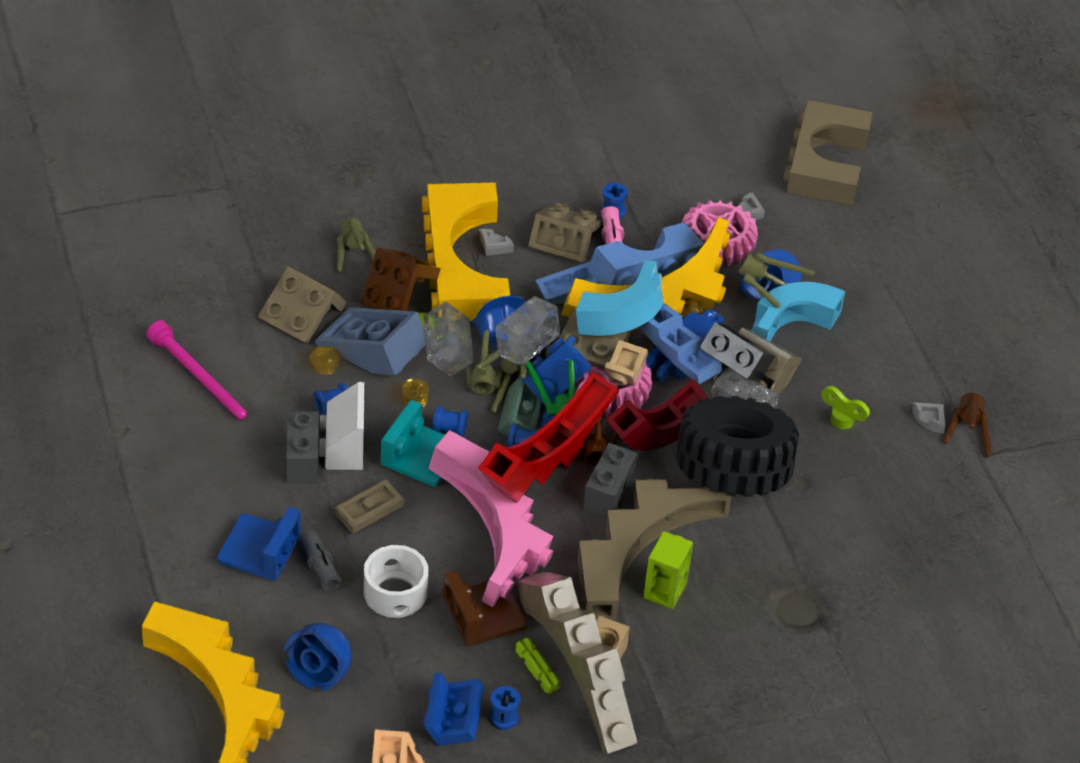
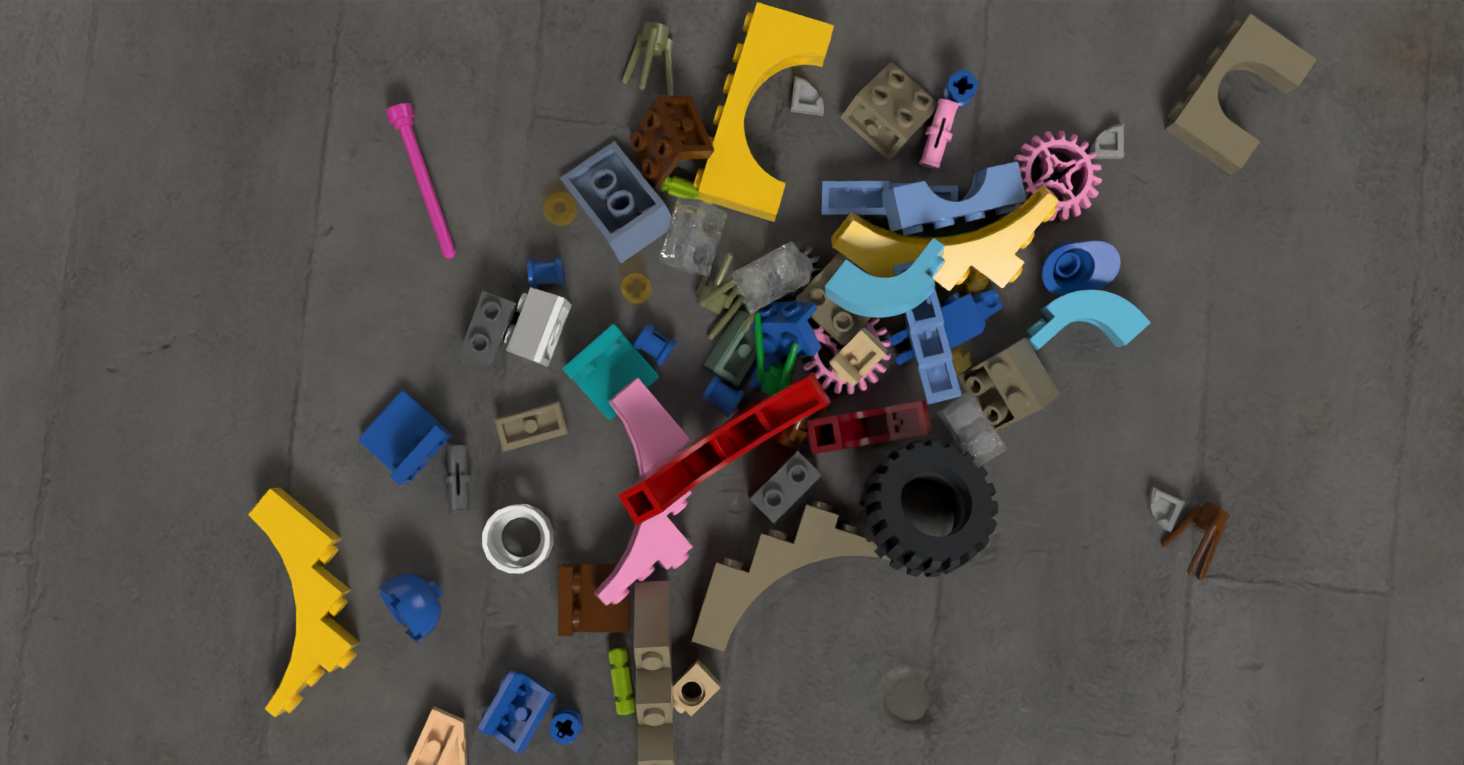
camera: 25 degrees right, 40 degrees up
(299, 304) = (562, 124): dark tan bracket -> none
(494, 313) = (754, 236): blue piece -> none
(668, 569) = (790, 631): lime brick -> none
(737, 351) = (985, 385): brick -> none
(754, 268) = (1061, 272): olive plant -> none
(844, 410) = (1073, 476): lime piece -> none

